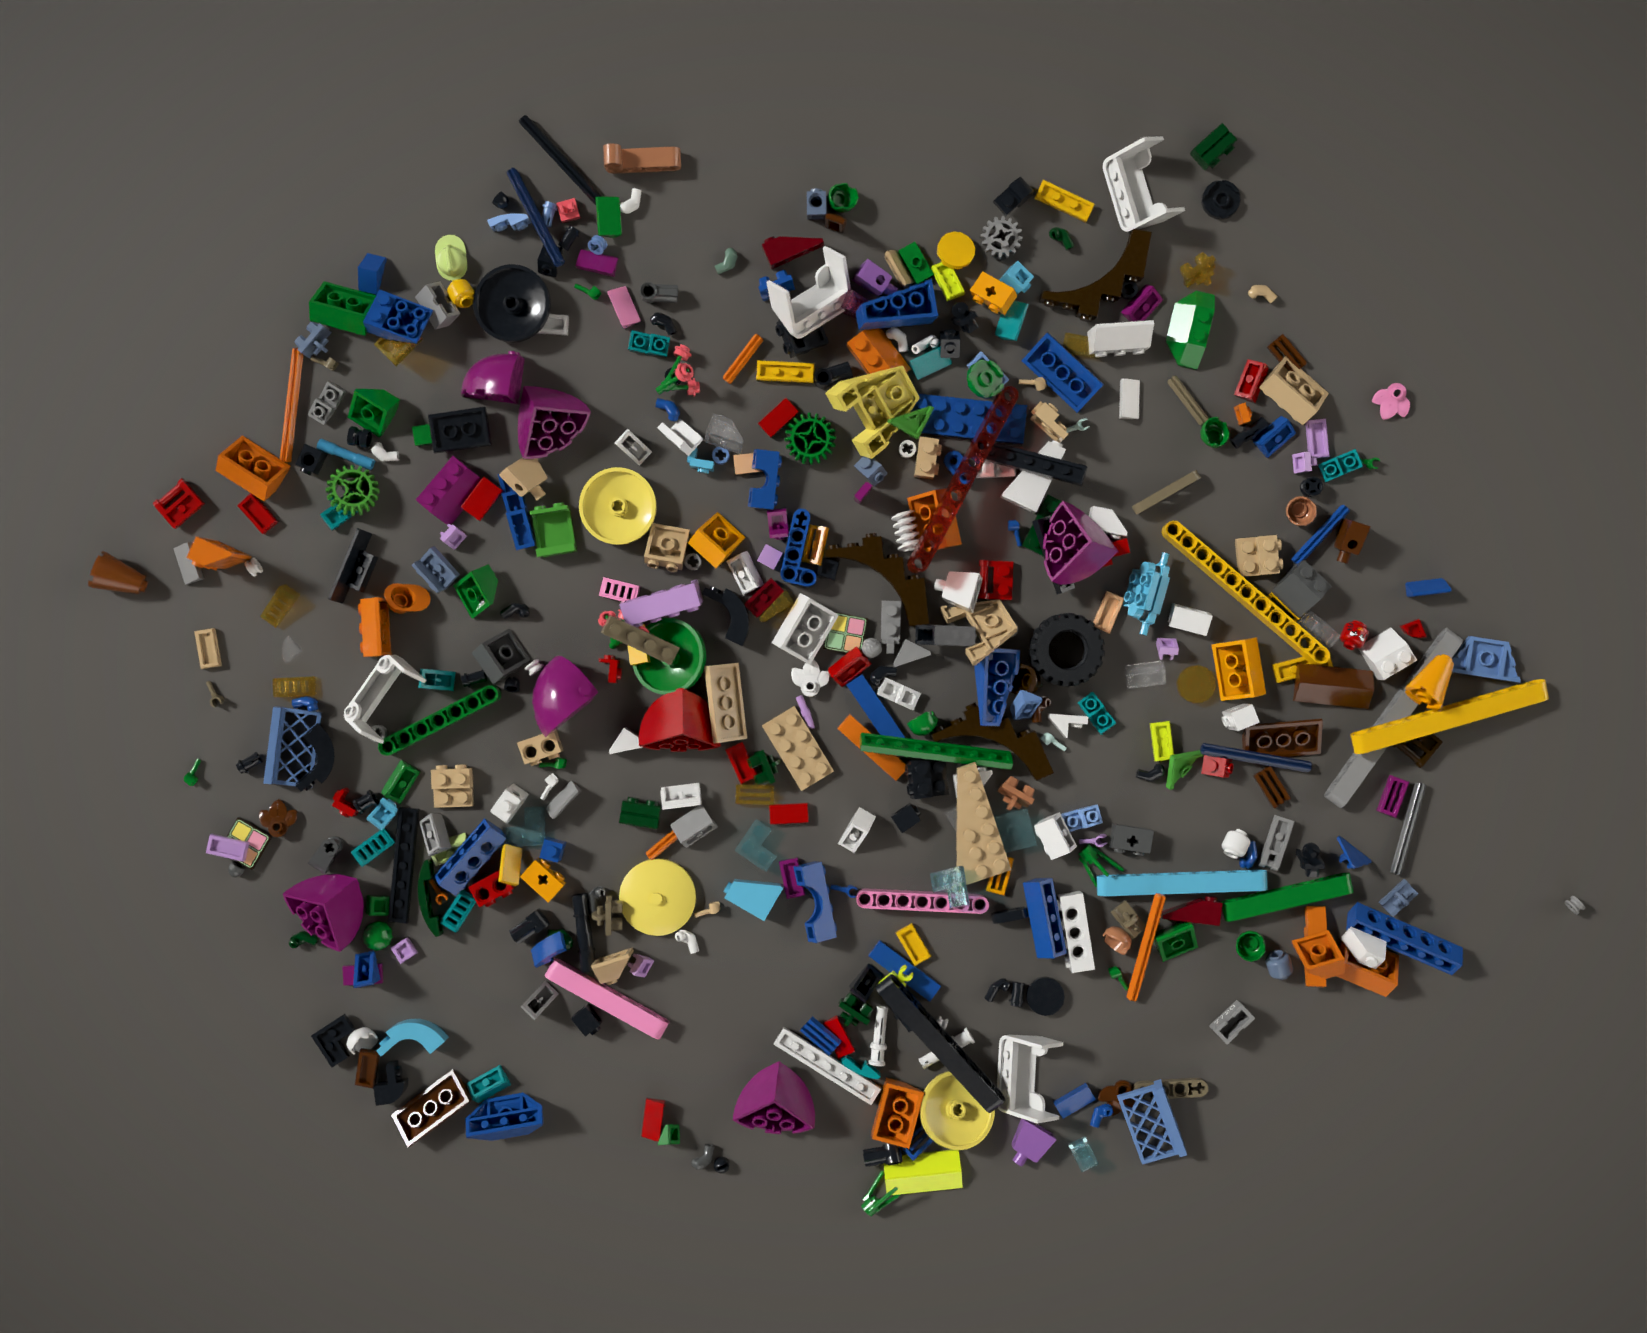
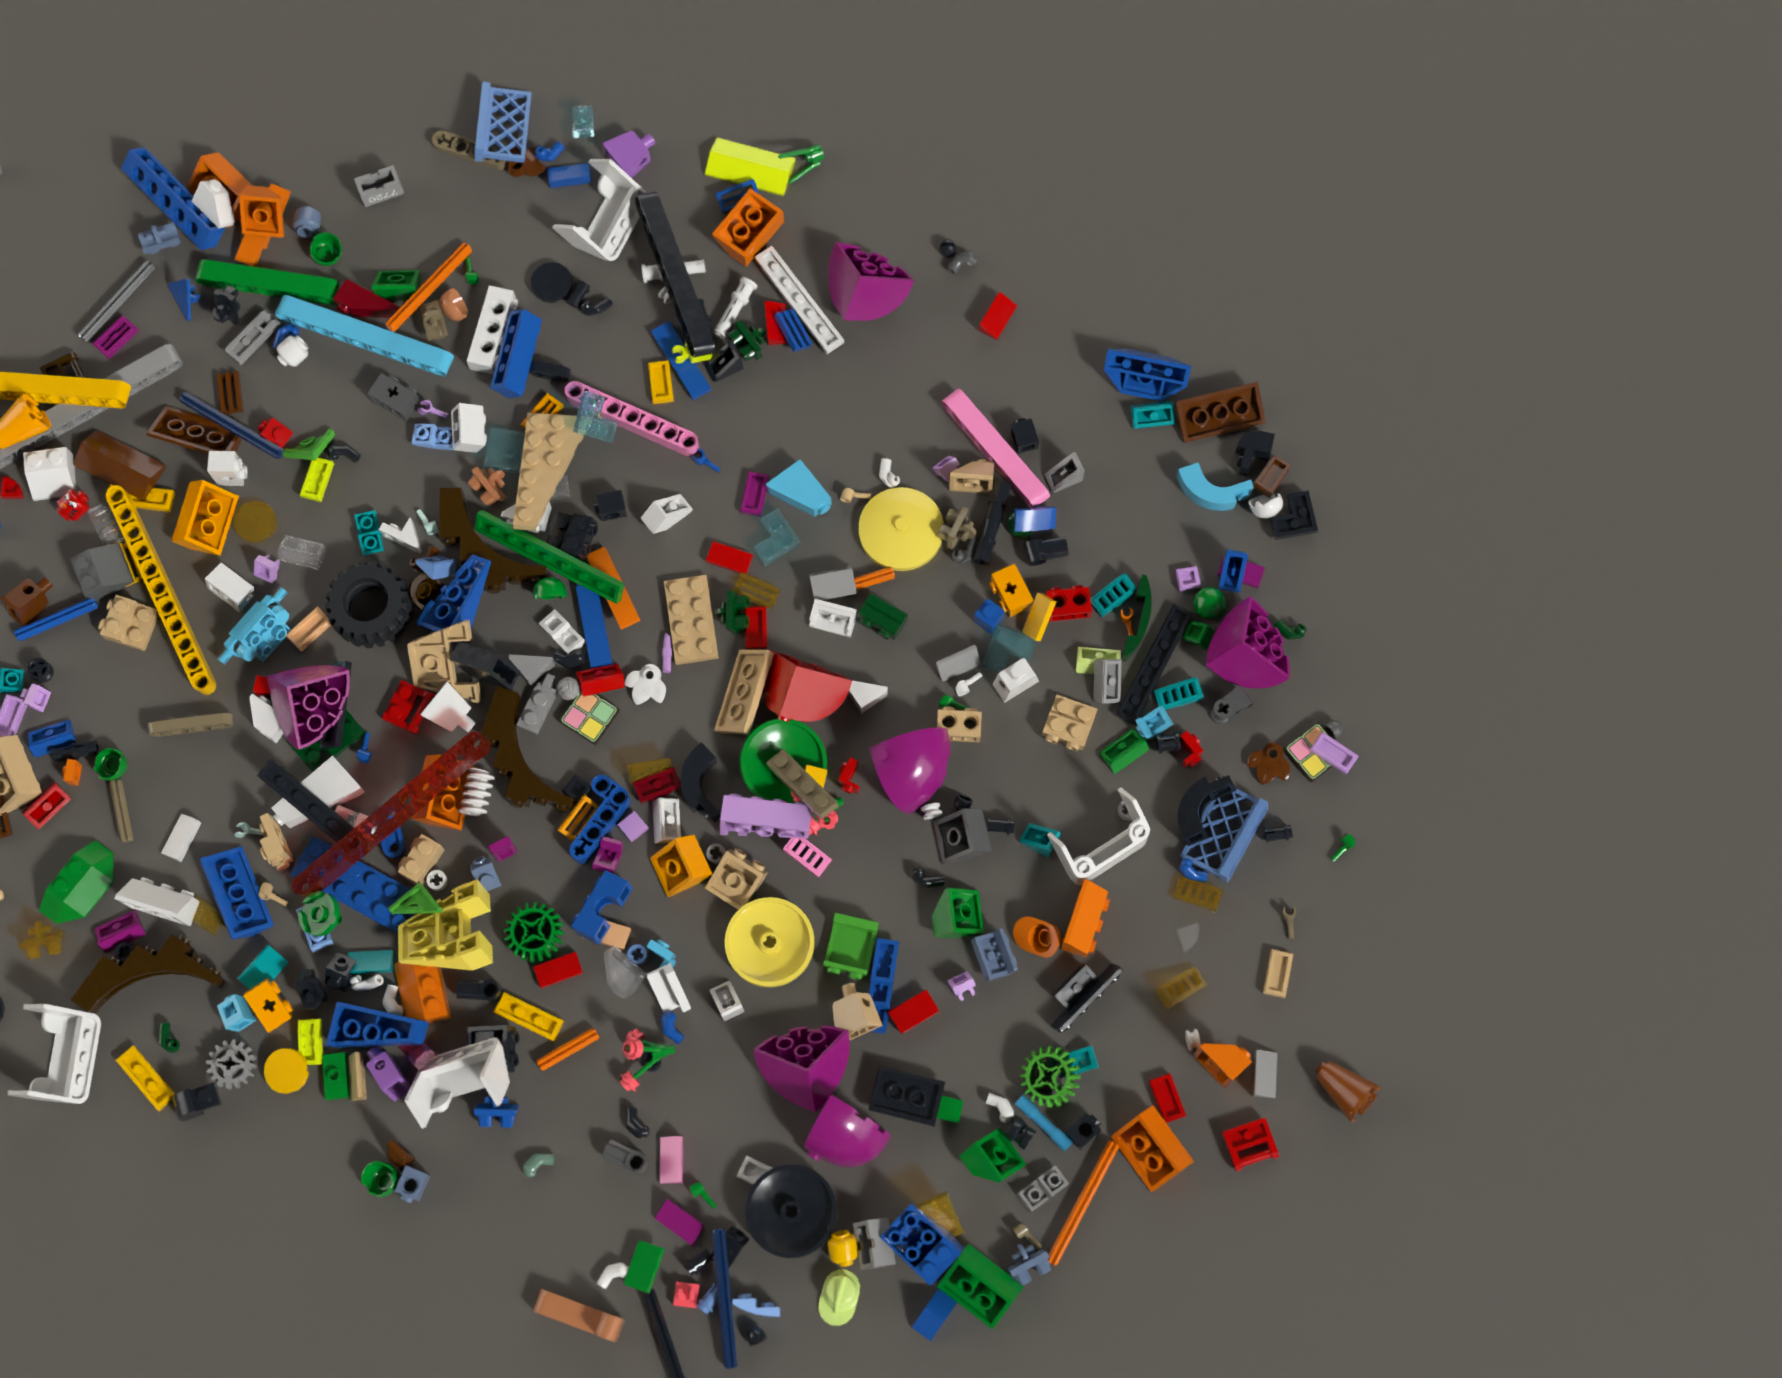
camera: 155 degrees left, 15 degrees down
(431, 723) = (1045, 801): green beam -> none
(449, 490) = (944, 1034): magenta slope -> none
(471, 847) = (1078, 642): blue brick -> none
(597, 245) = (670, 1239): medium blue bush -> none
(648, 343) = (662, 1108): teal slope -> none
(670, 1135) = (986, 293): green slope -> none
(785, 249) = (473, 1149): dark red slope -> none
(805, 629) = (628, 735): white slope -> none
(821, 923) = (743, 435): blue arch -> none
(865, 1069) = (764, 282): teal slope -> none
(887, 1154) = (781, 195): black piece -> none
(953, 1114) = (693, 204): light yellow dish -> none
(1089, 855) = (443, 397): green plant -> none
(1301, 511) = (62, 648): nougat hair -> none

